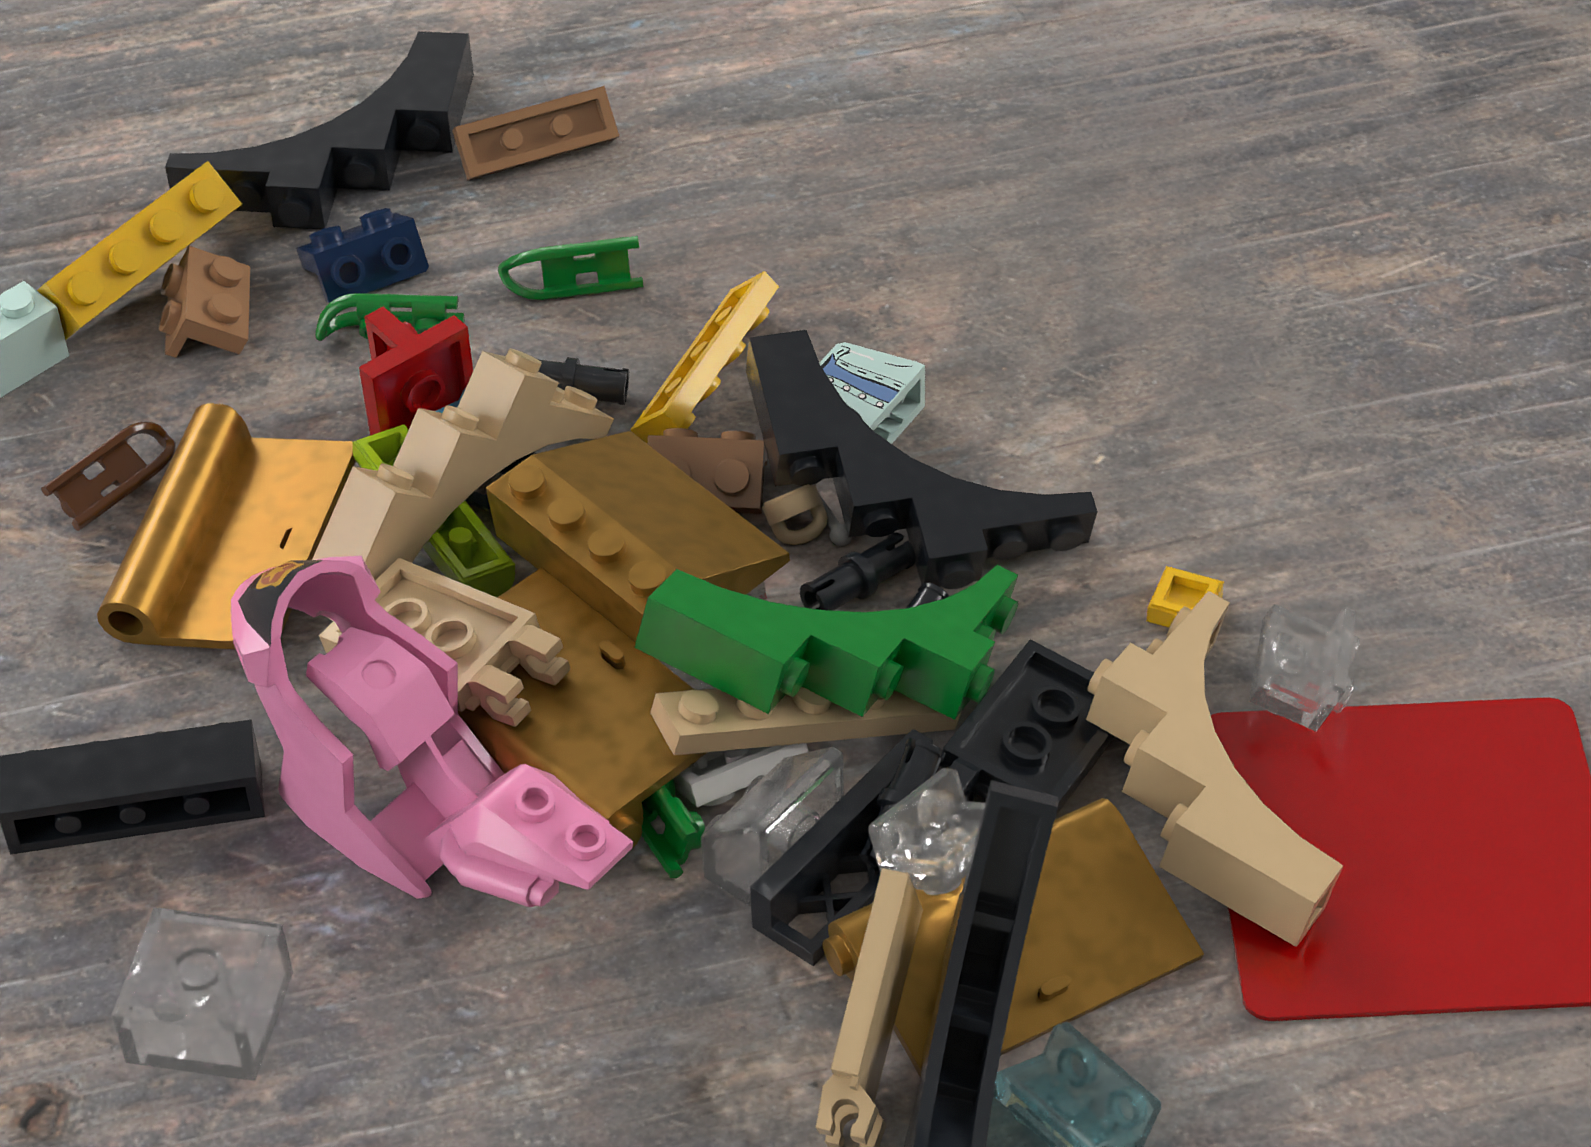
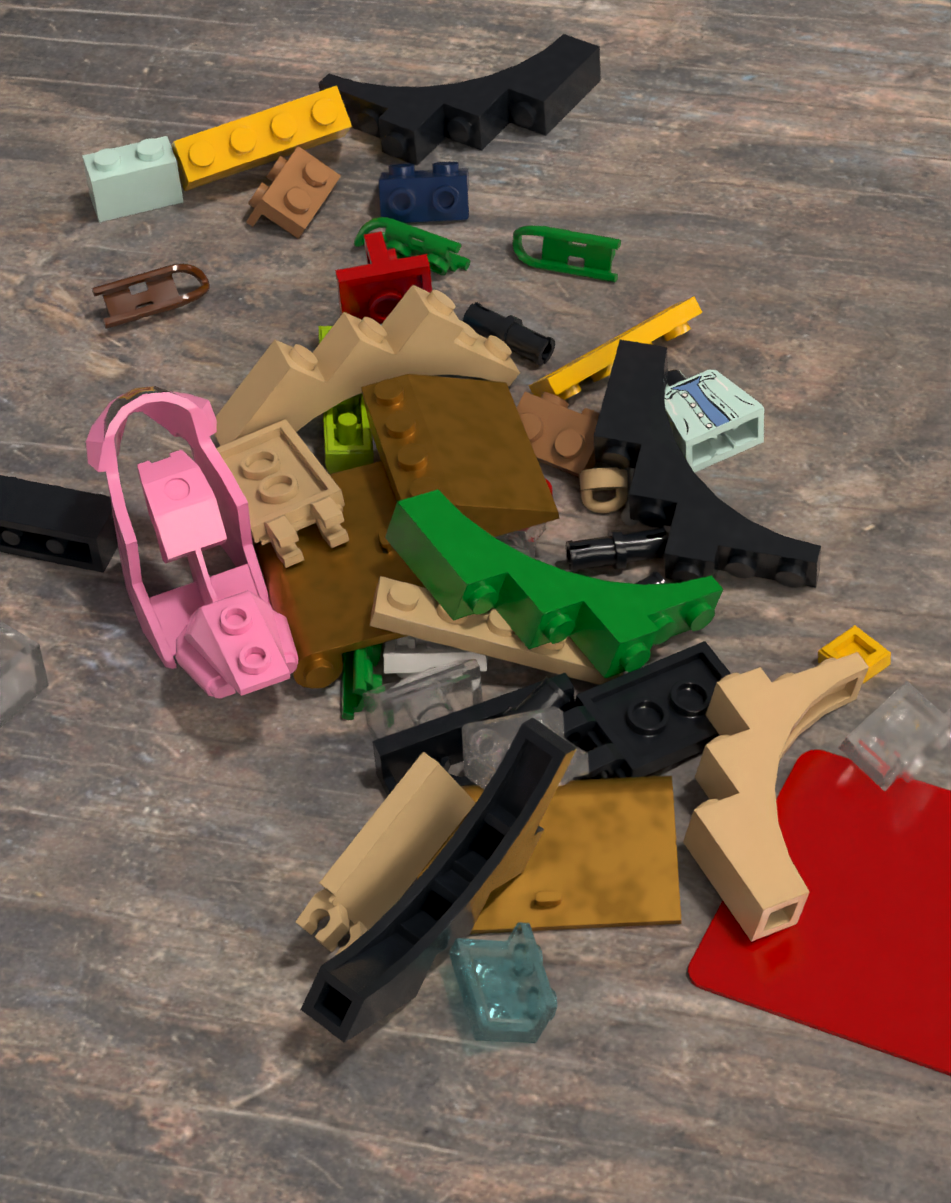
camera: 30 degrees right, 0 degrees up
(214, 522) = (196, 350): pearl gold door -> none
(535, 133) = (607, 138): medium nougat plate -> none

